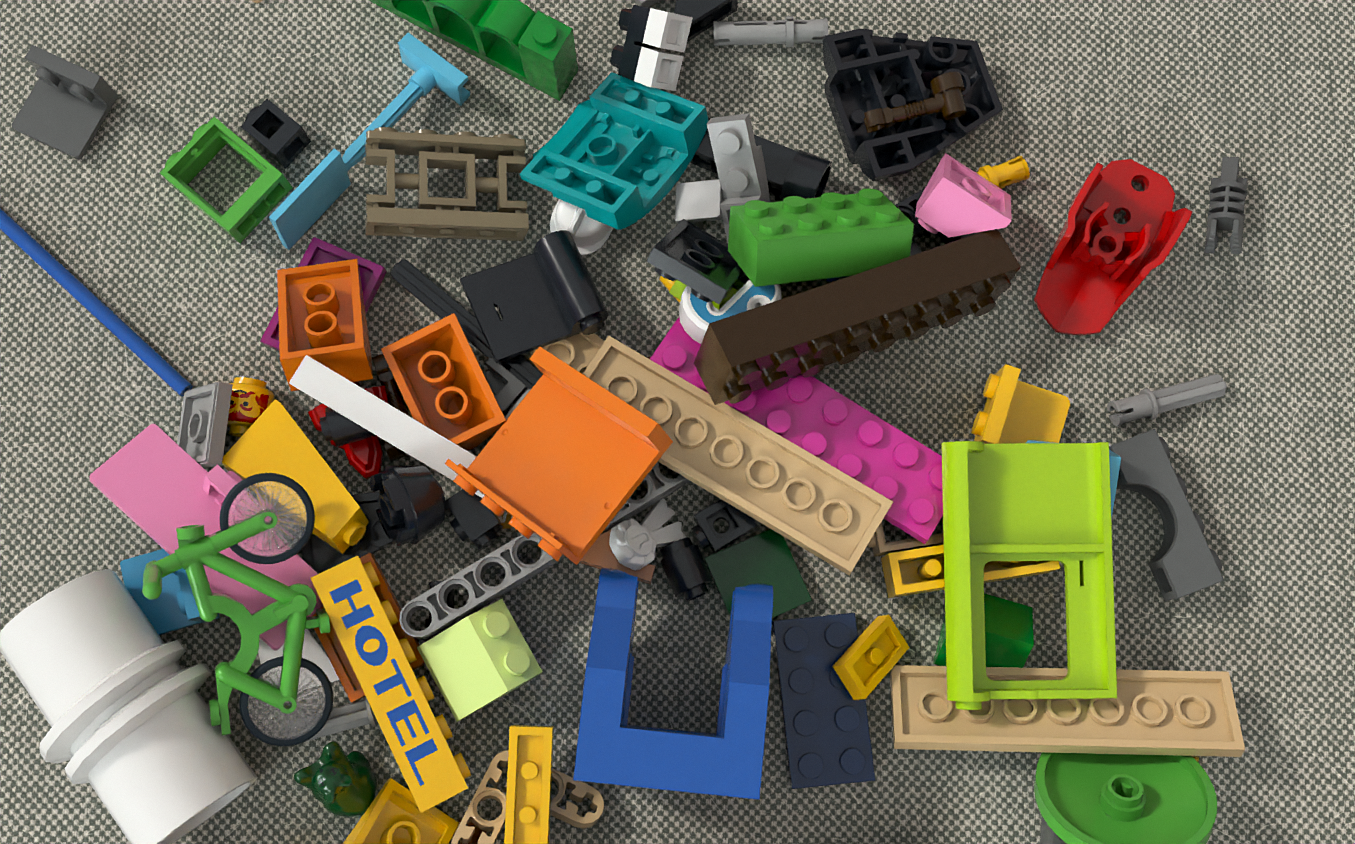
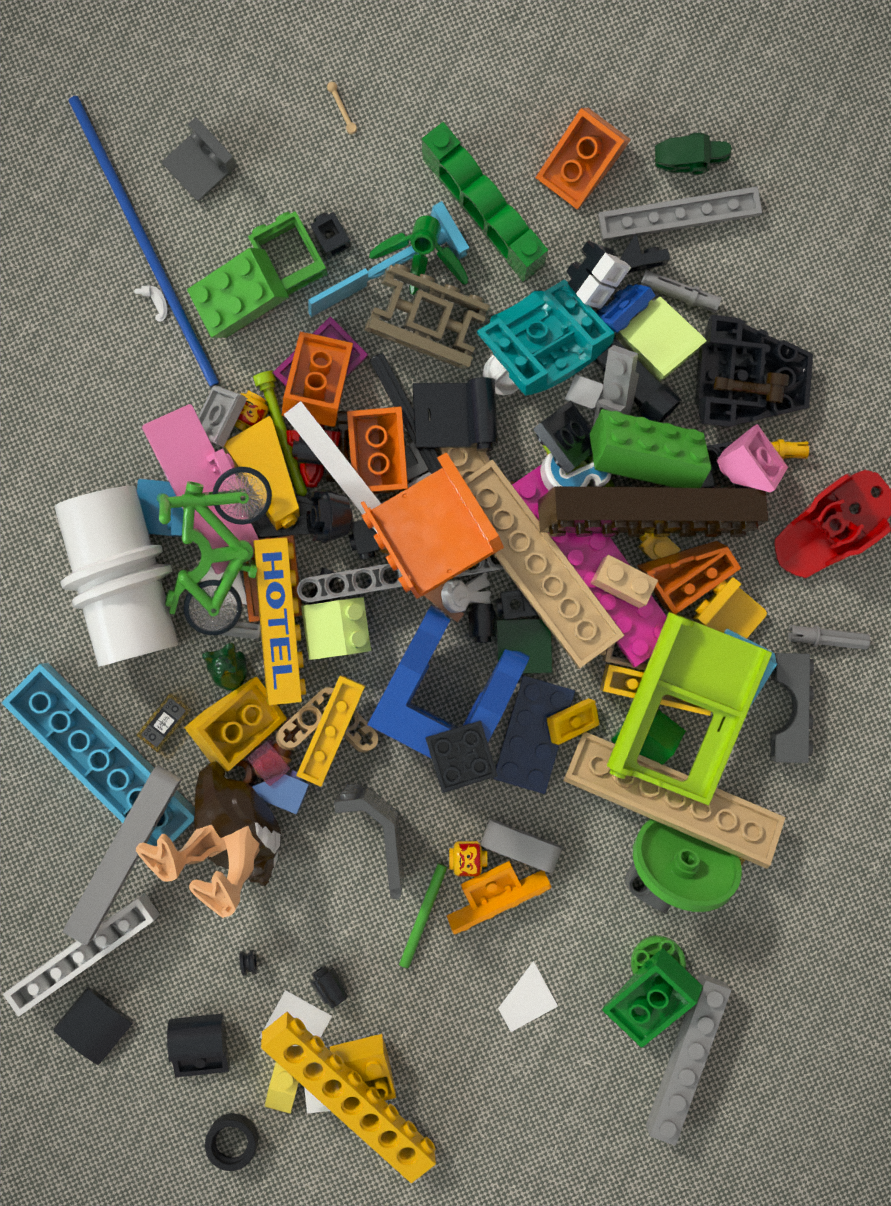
camera: 25 degrees right, 10 degrees up
(65, 305) = (157, 298): none -> white piece
(171, 251) = (238, 293): none -> bright green brick
(256, 358) = (266, 382): none -> lime piece
(401, 83) = (423, 241): none -> green plant
(707, 69) = (625, 306): none -> blue plate
(734, 770) = (461, 756): none -> black tile
(776, 91) = (660, 338): none -> yellowish green slope
(861, 425) = (624, 581): none -> tan brick
(884, 371) = (657, 547): none -> yellow bracket
(943, 387) = (690, 574): none -> orange wedge

